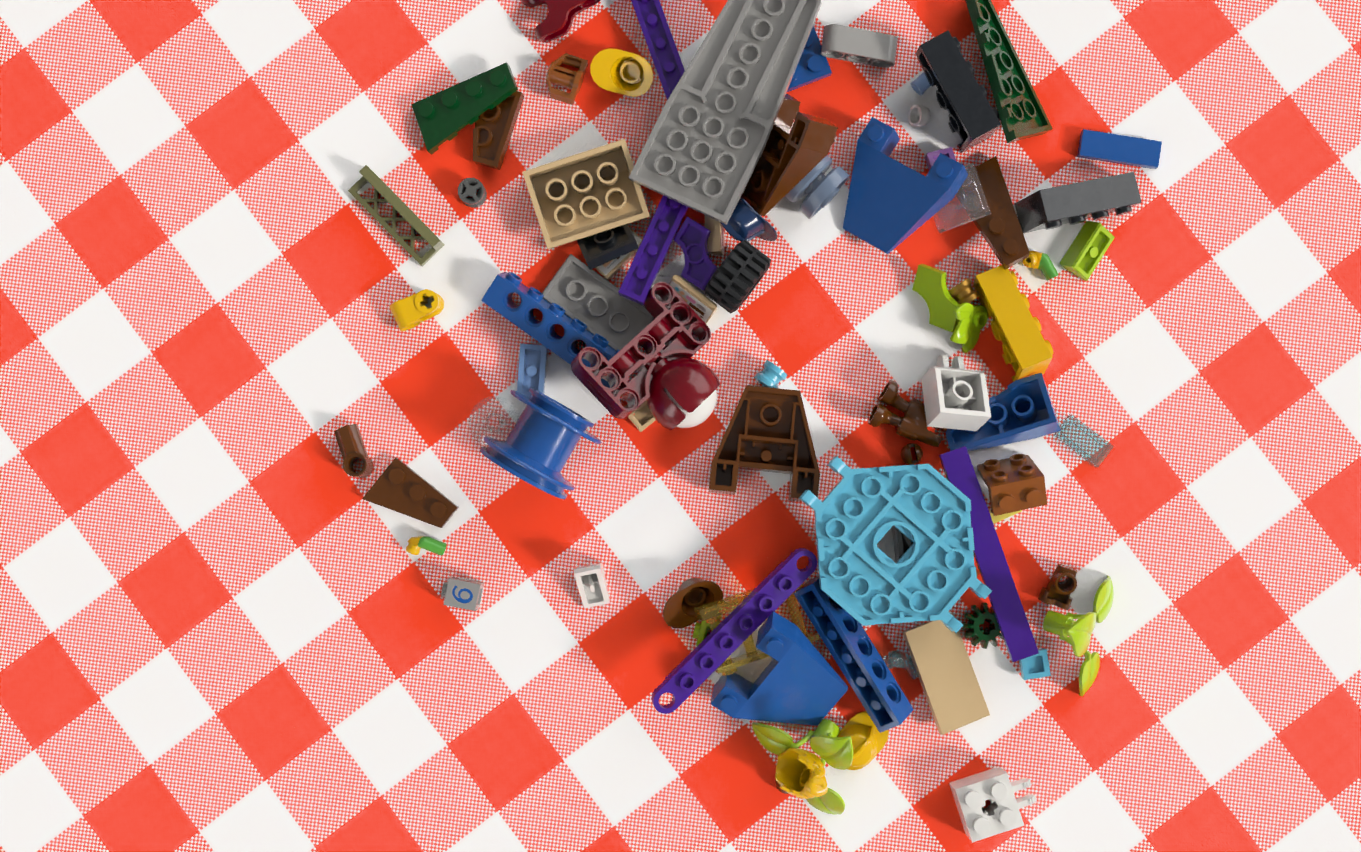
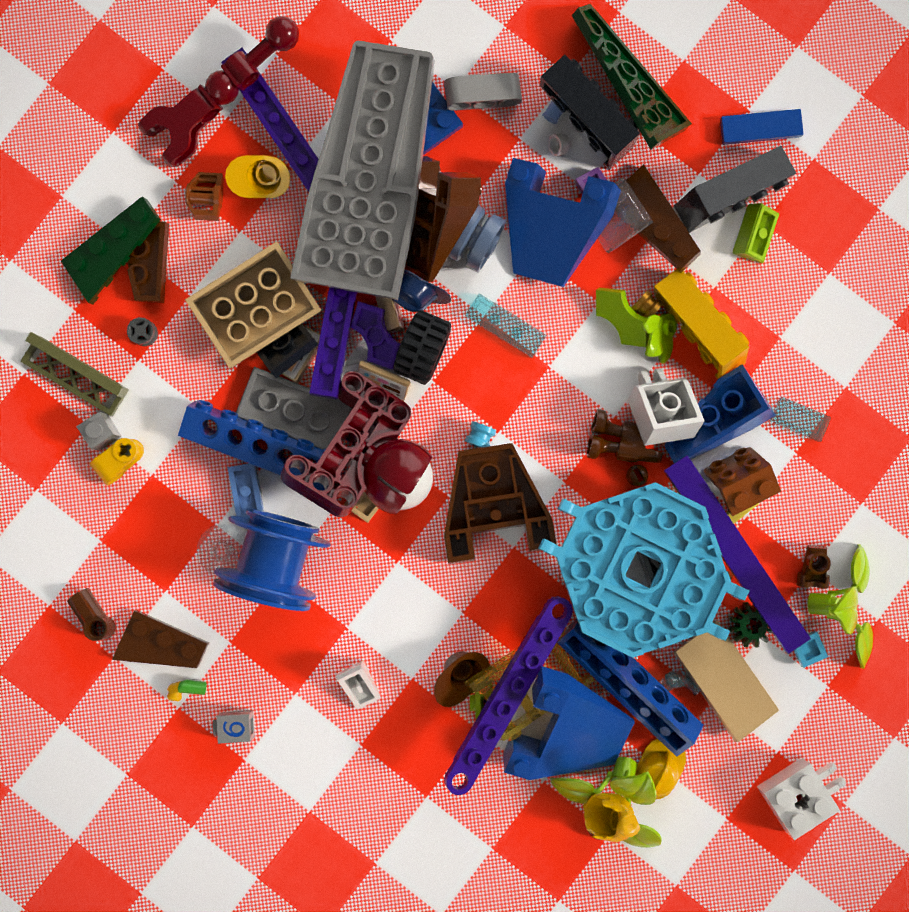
camera: 15 degrees left, 0 degrees up
(406, 277) = (99, 431): none -> light grey brick
(822, 277) = (505, 325): none -> clear light blue tile
(1041, 261) = (716, 256): arm -> none

